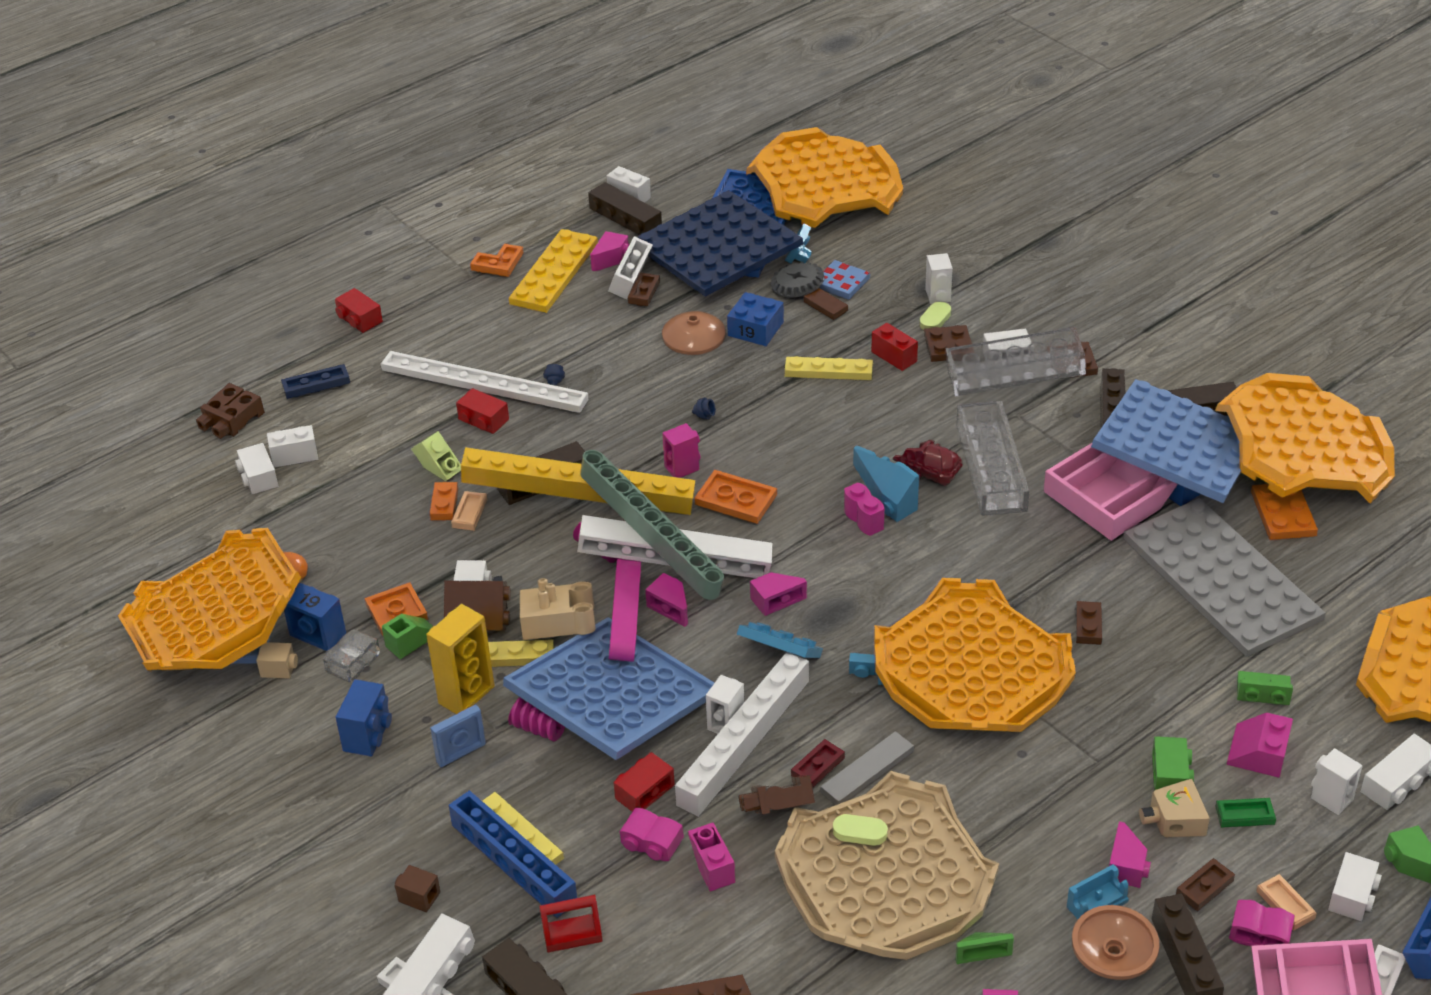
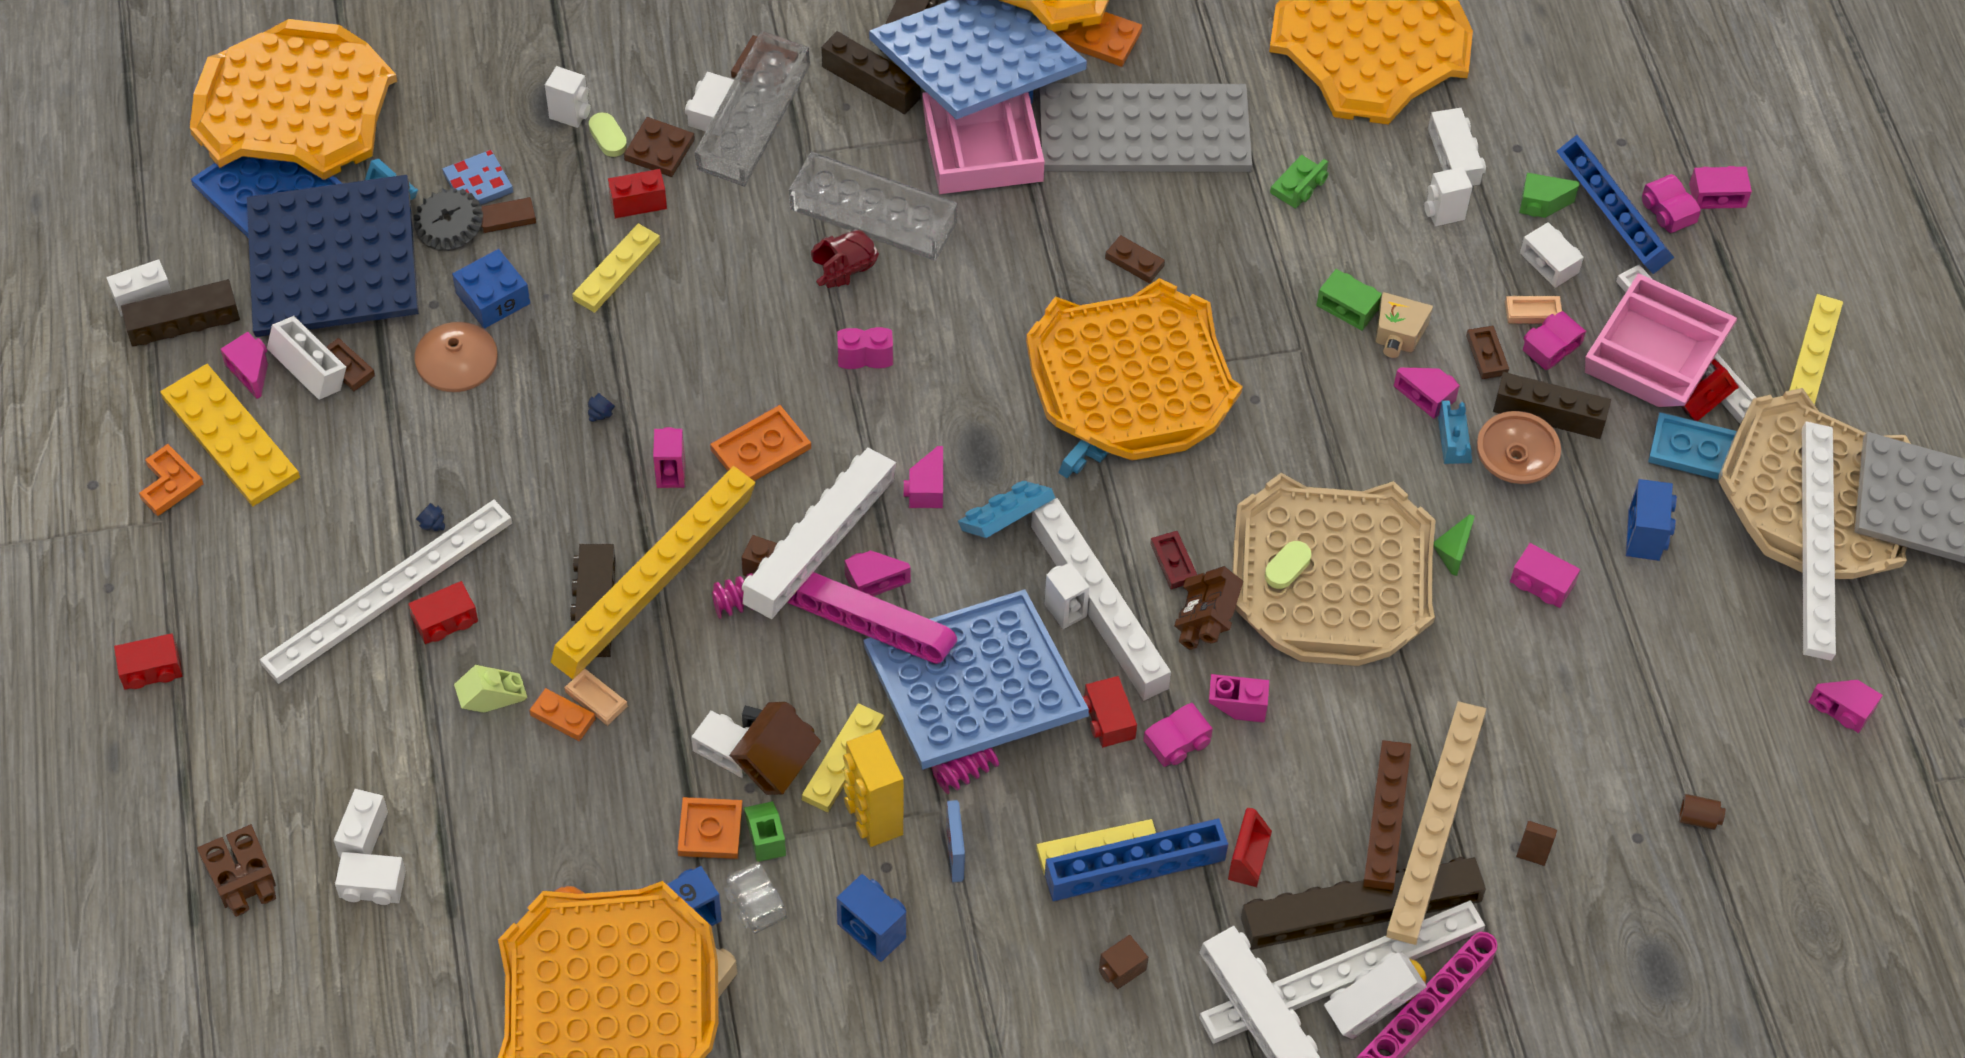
camera: 65 degrees left, 15 degrees up
(315, 381) = (249, 759): dark blue plate -> none
(557, 610) = (829, 686): tan piece -> none
(652, 525) = (798, 531): sand green beam -> none
(867, 768) = (1200, 523): light grey tile -> none
(889, 482) = (854, 306): dark azure wedge -> none
(1245, 812) = (1425, 279): green tile -> none
(1261, 744) = (1365, 221): dark pink slope -> none

